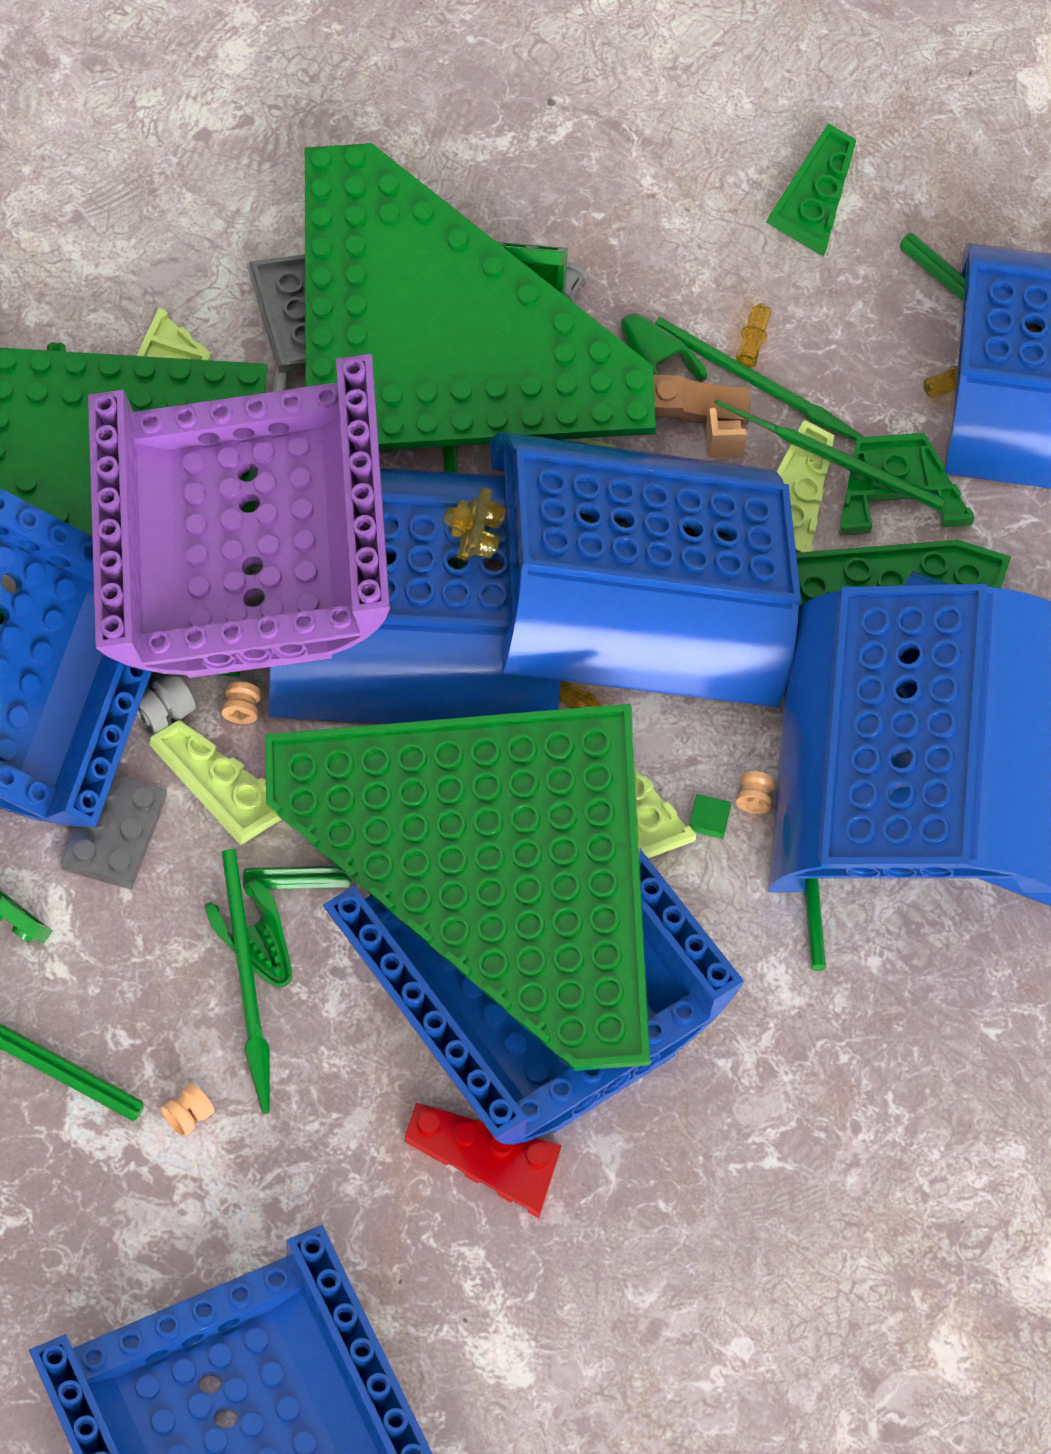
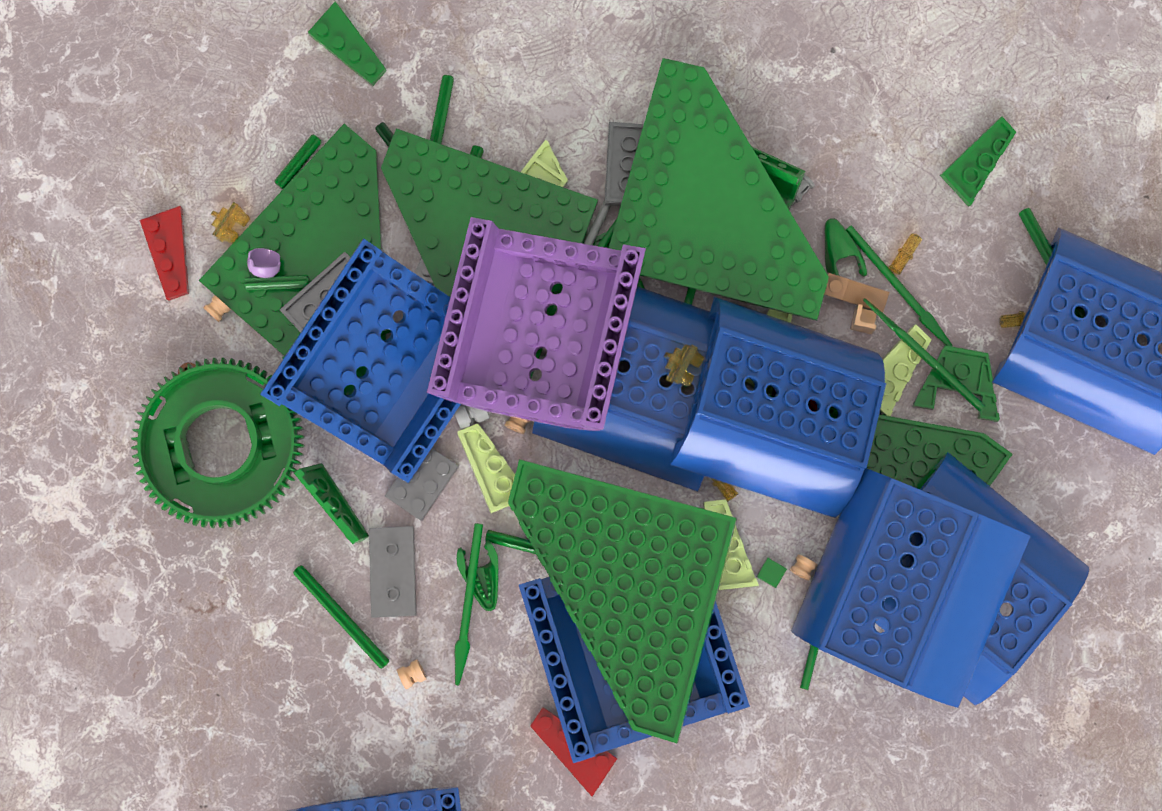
camera: 25 degrees right, 20 degrees up
(108, 972) = (392, 572): none -> flat silver plate

